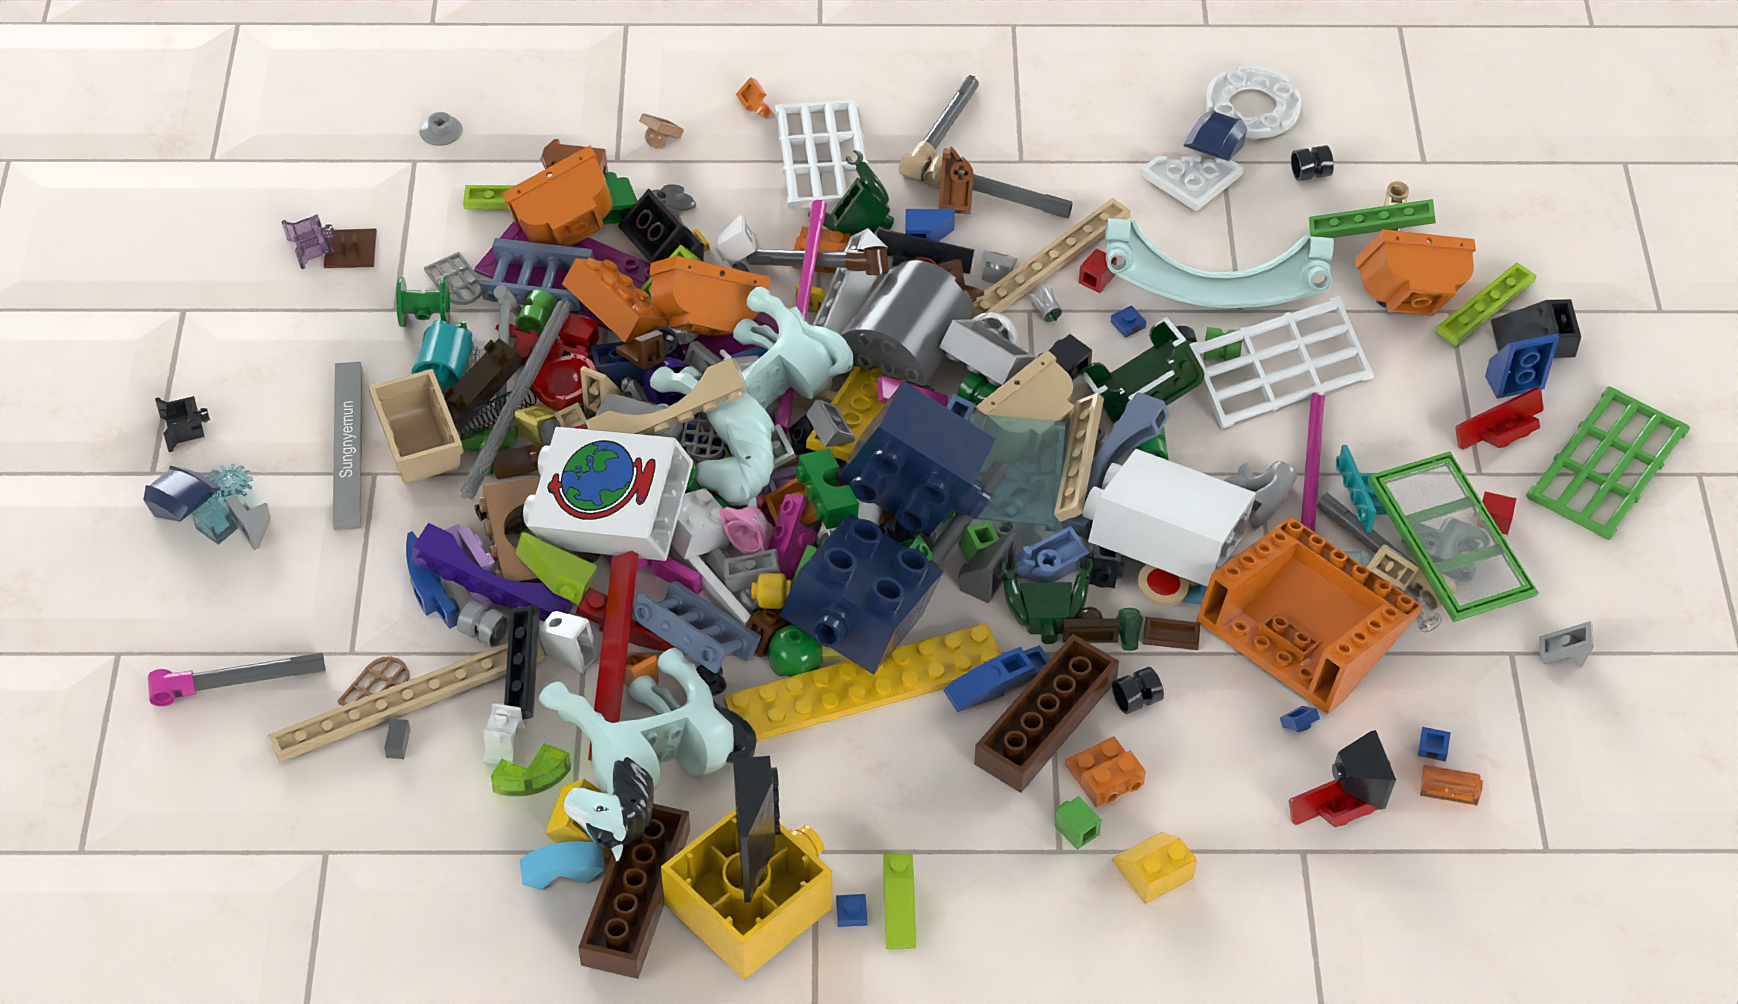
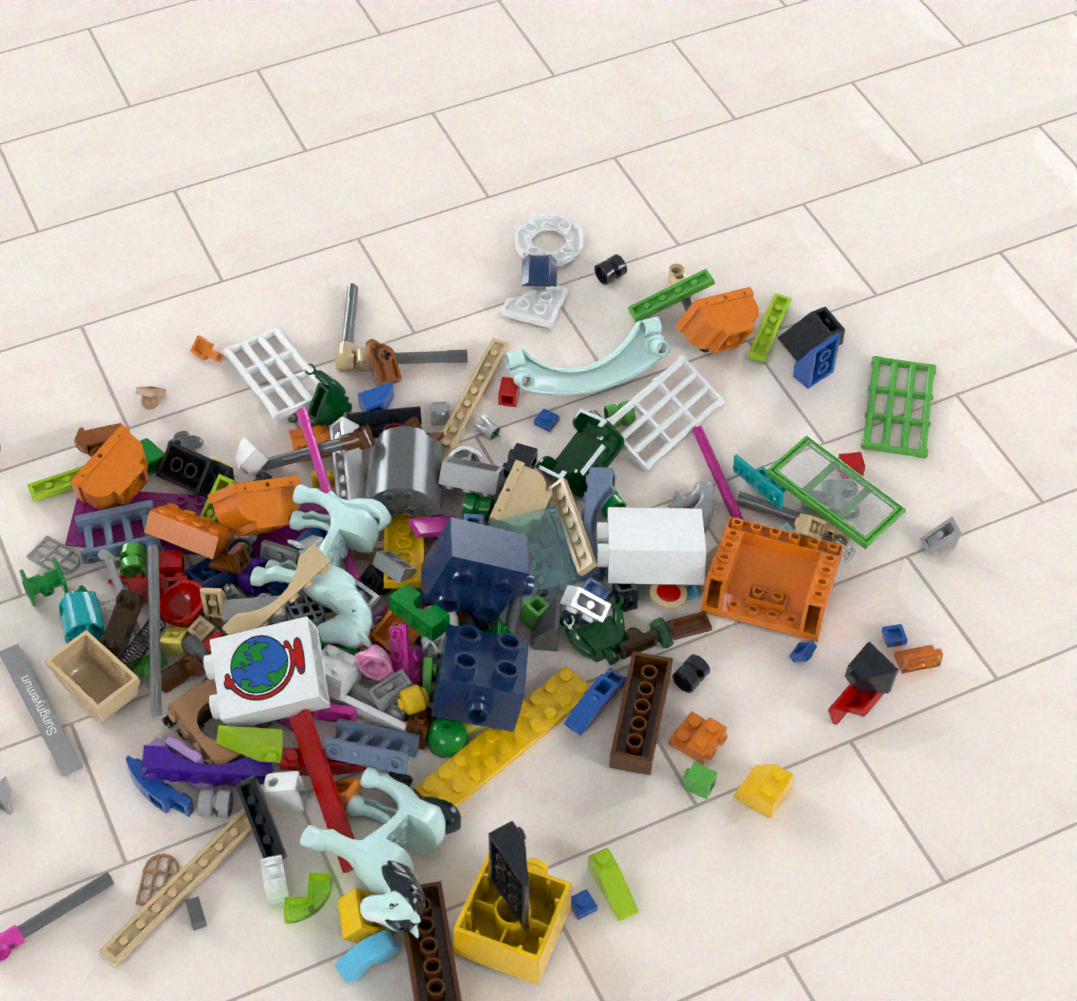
camera: 25 degrees left, 0 degrees up
(1040, 553) = (583, 602): none -> white brick
(1503, 422) = (823, 404): red bracket -> none

